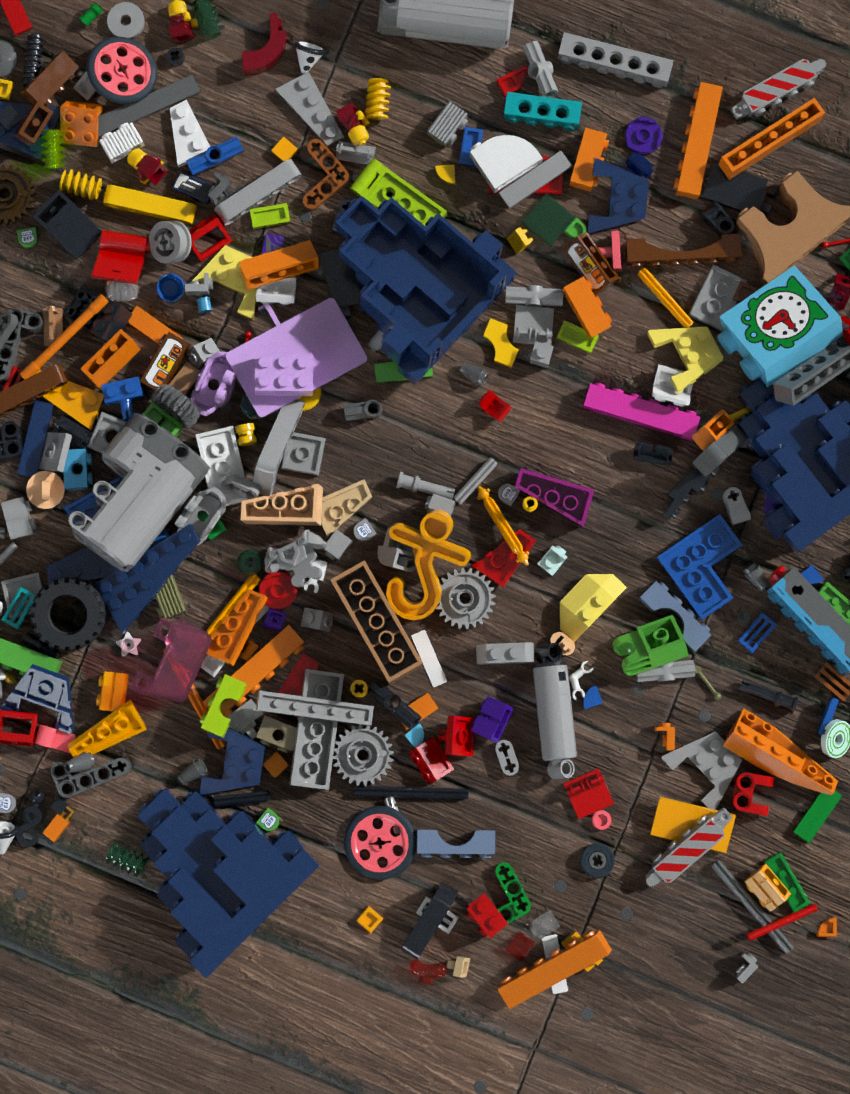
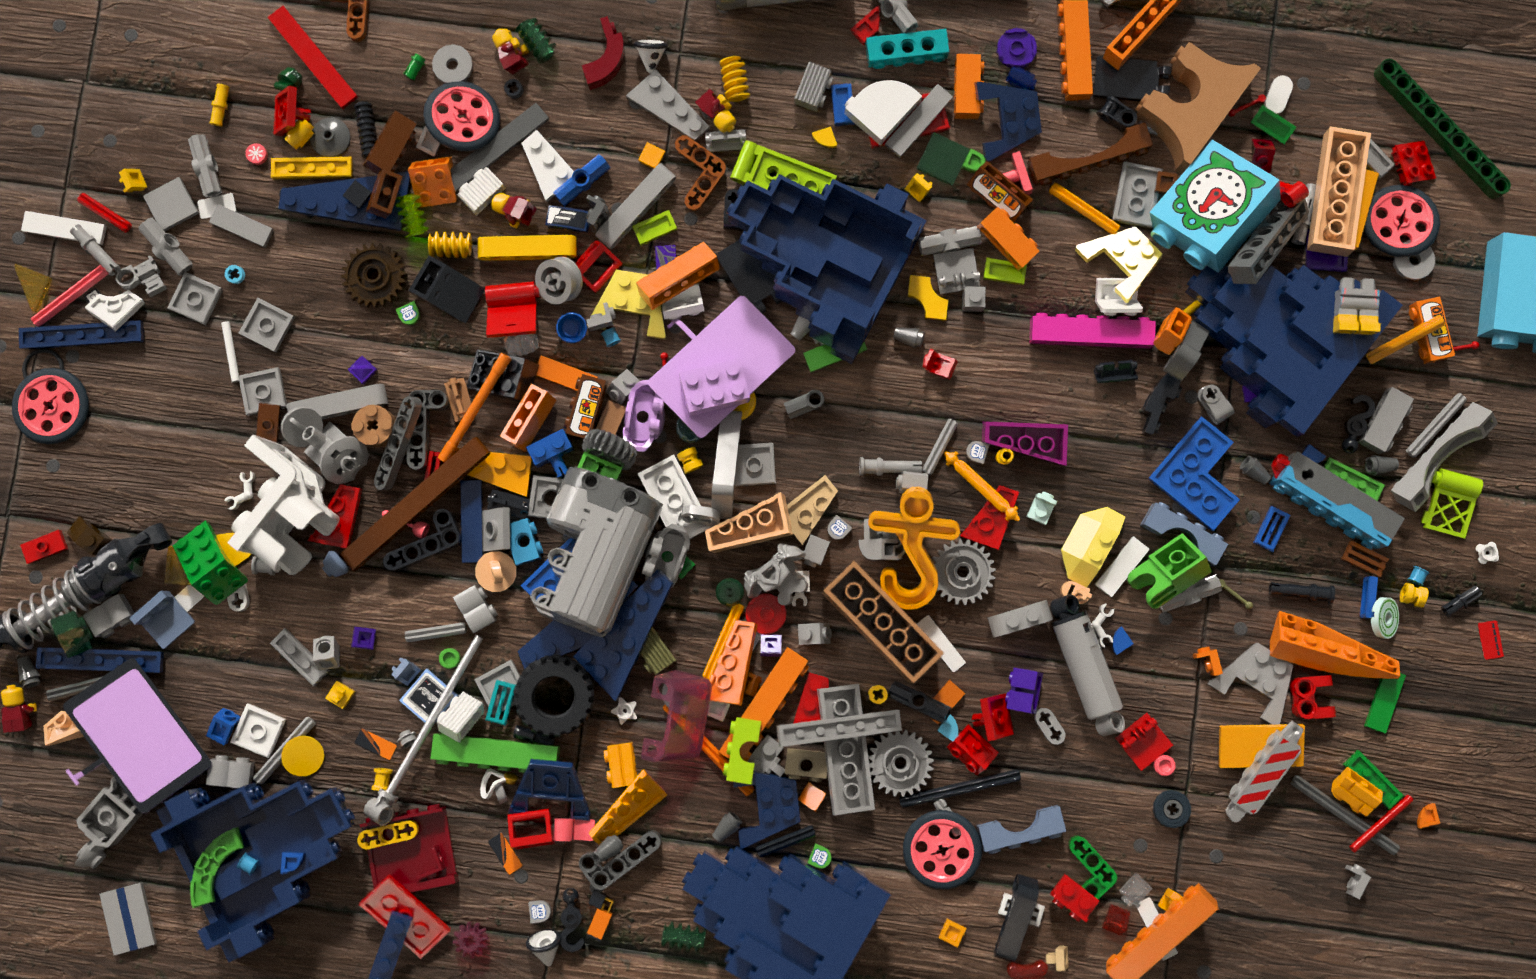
camera: 15 degrees left, 0 degrees up
(614, 628) = (1121, 566): none -> white tile

